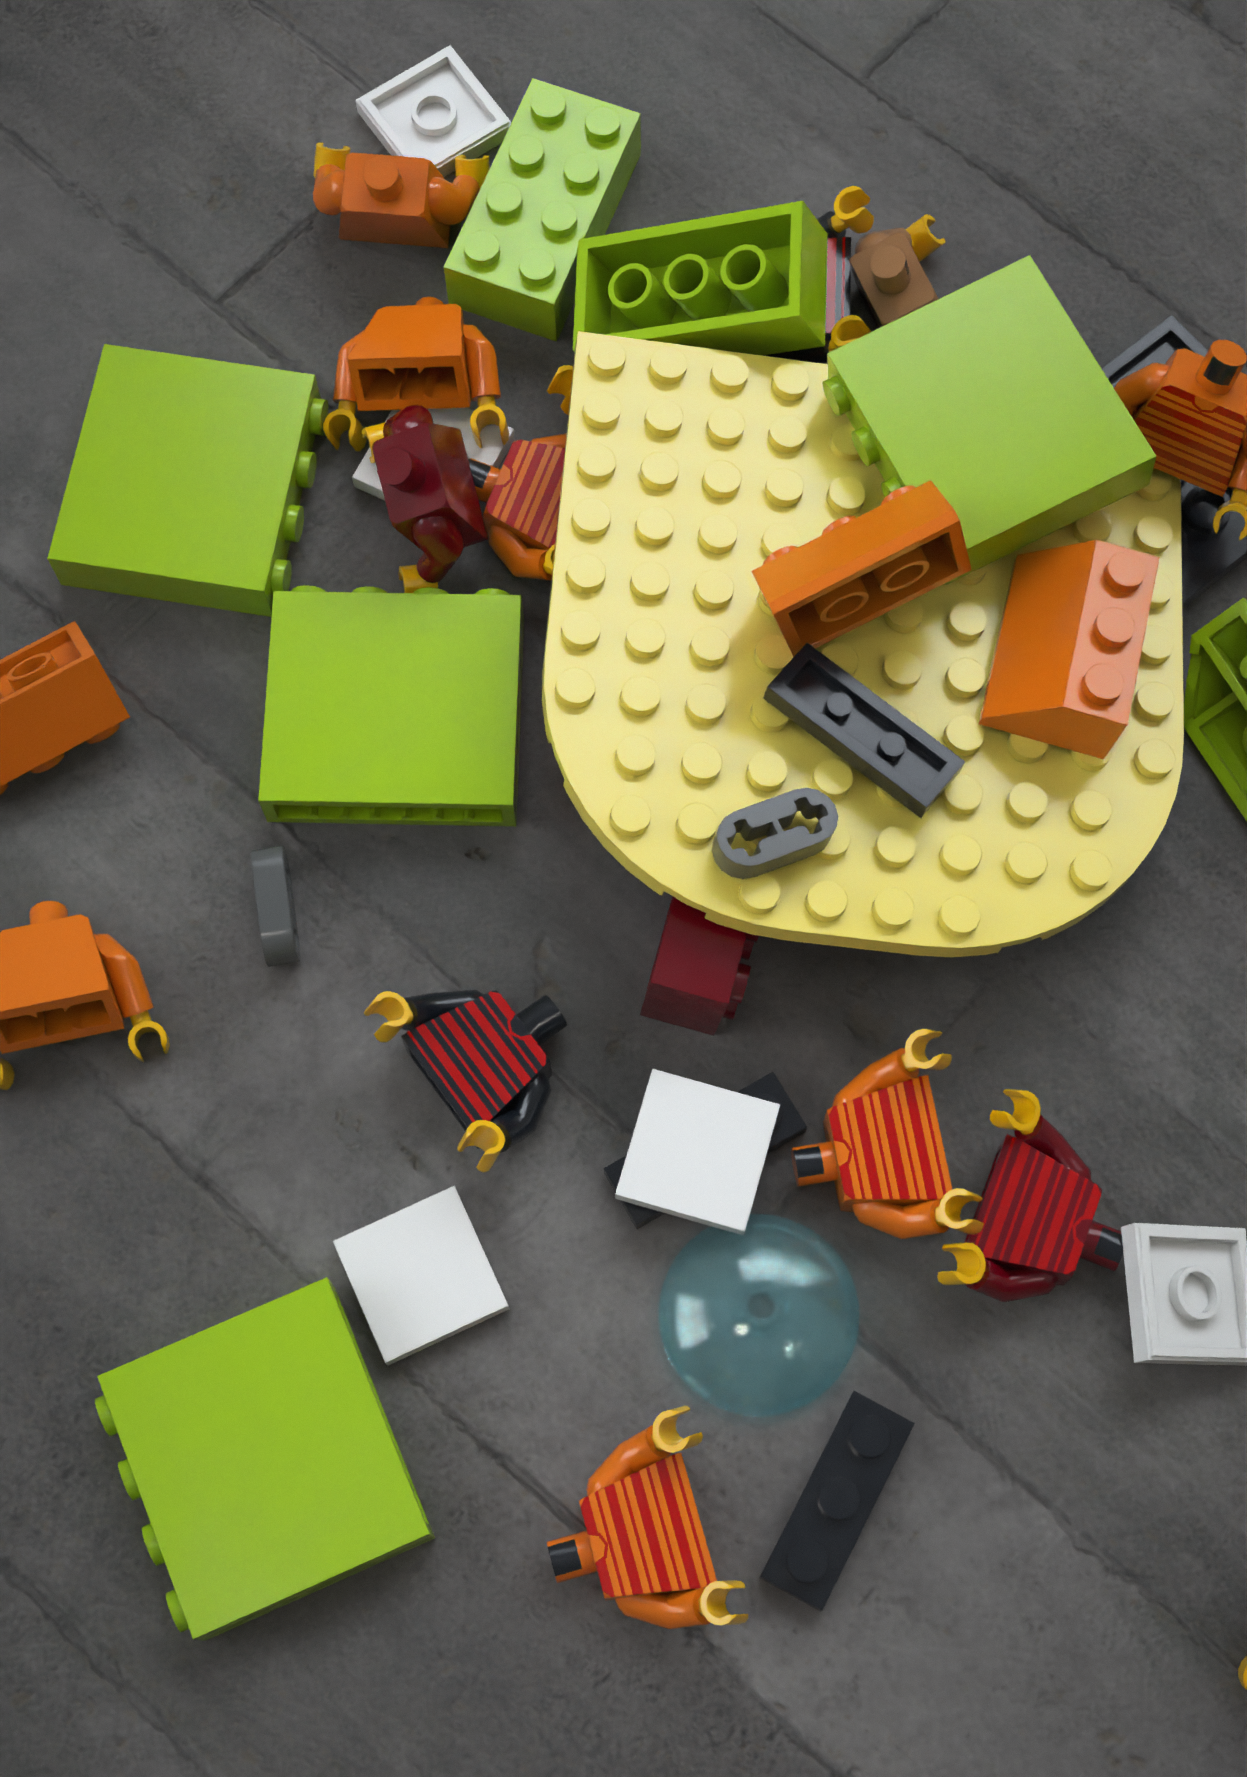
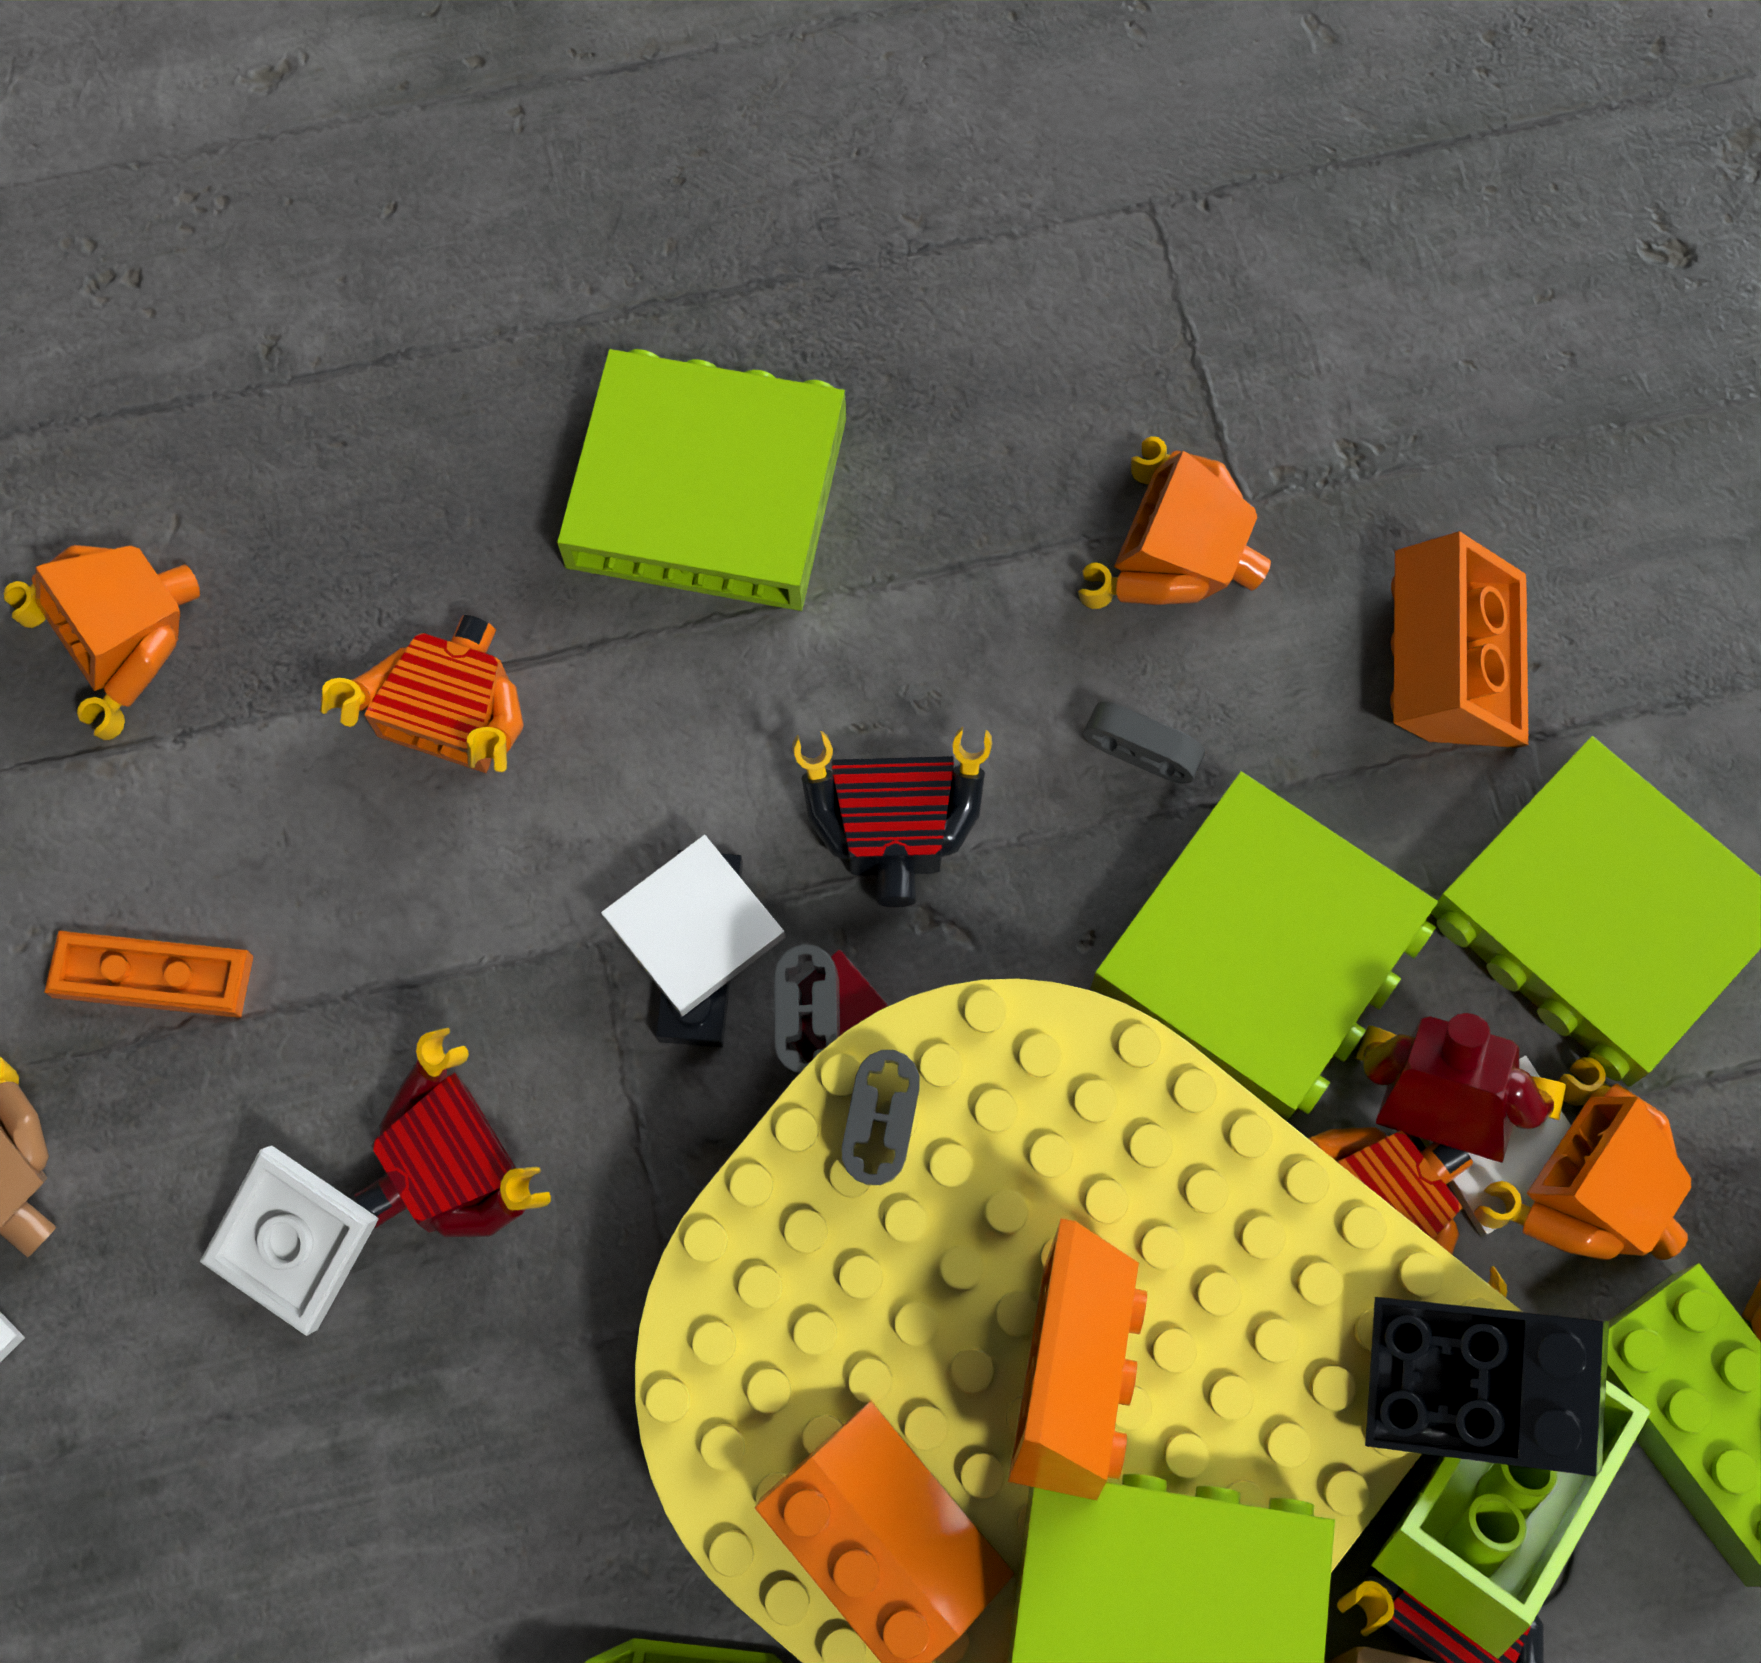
camera: 125 degrees right, 0 degrees up
(420, 1275) = (761, 672): white tile -> none
(652, 310) = (1488, 1385): none -> black slope
(731, 979) = (789, 1007): none -> dark grey beam
(749, 1361) = (548, 940): clear light blue dish -> none
(837, 1501) = (364, 861): black plate -> none
(863, 730) = (925, 1270): black plate -> none
(889, 1149) = (582, 1081): torso -> none
(1074, 1615) = (149, 974): none -> orange tile

